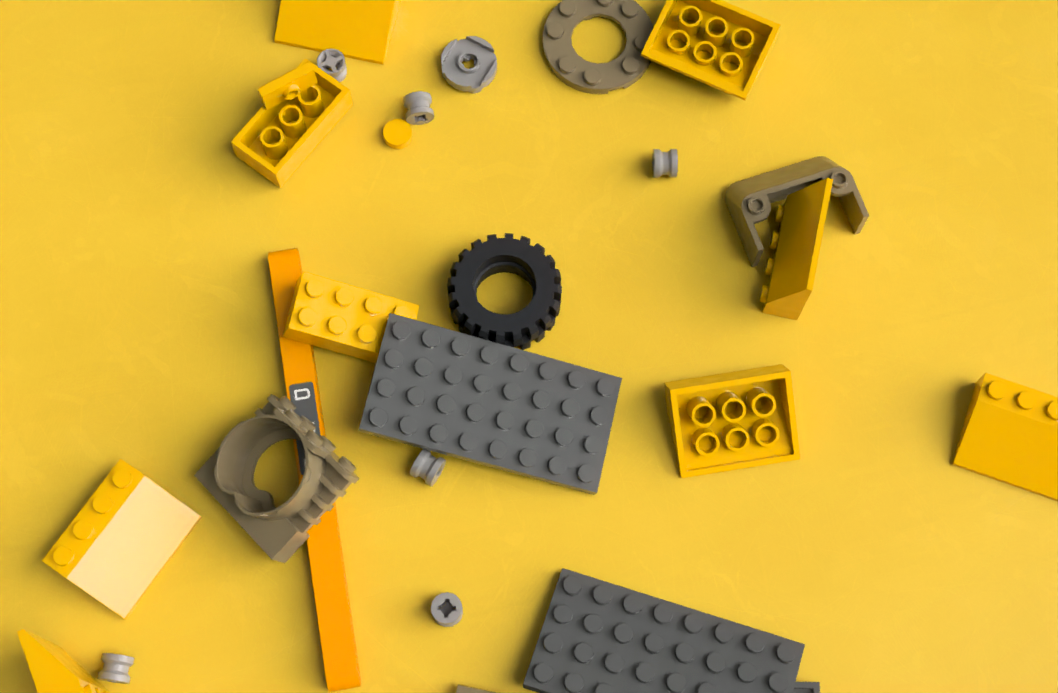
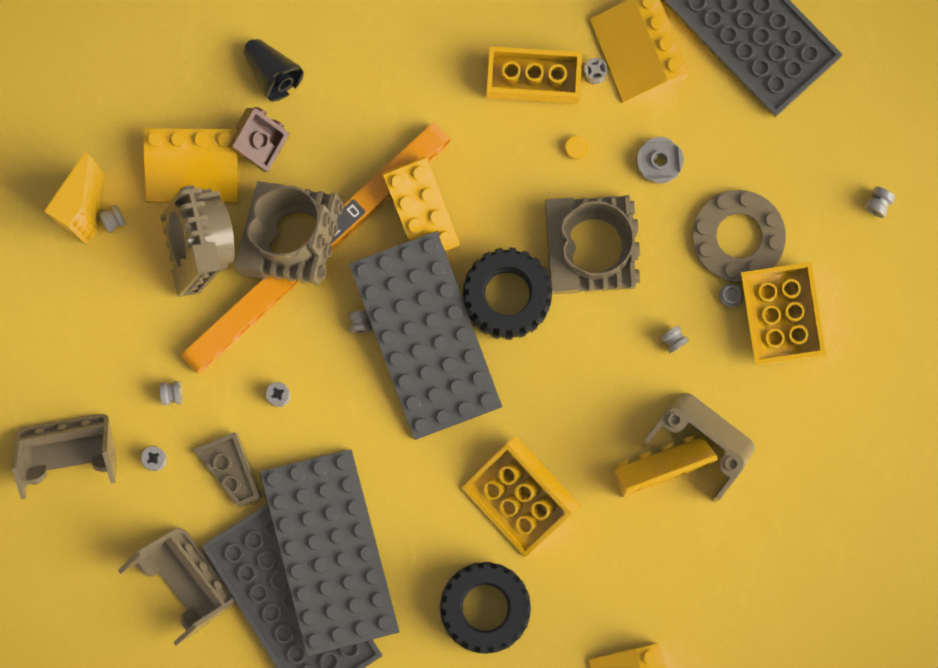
camera: 60 degrees right, 10 degrees up
(83, 381) = (272, 69): none -> black cone
(148, 442) = (258, 138): none -> plate
(210, 578) = (197, 238): none -> dark tan hose
(288, 85) = (550, 57): yellow plate -> none
(418, 108) = (603, 149): light grey wheel -> none
(483, 206) = (563, 216): none -> dark tan hose
(654, 84) = (731, 295): none -> light grey plate
(857, 500) = (452, 607): none -> black tyre

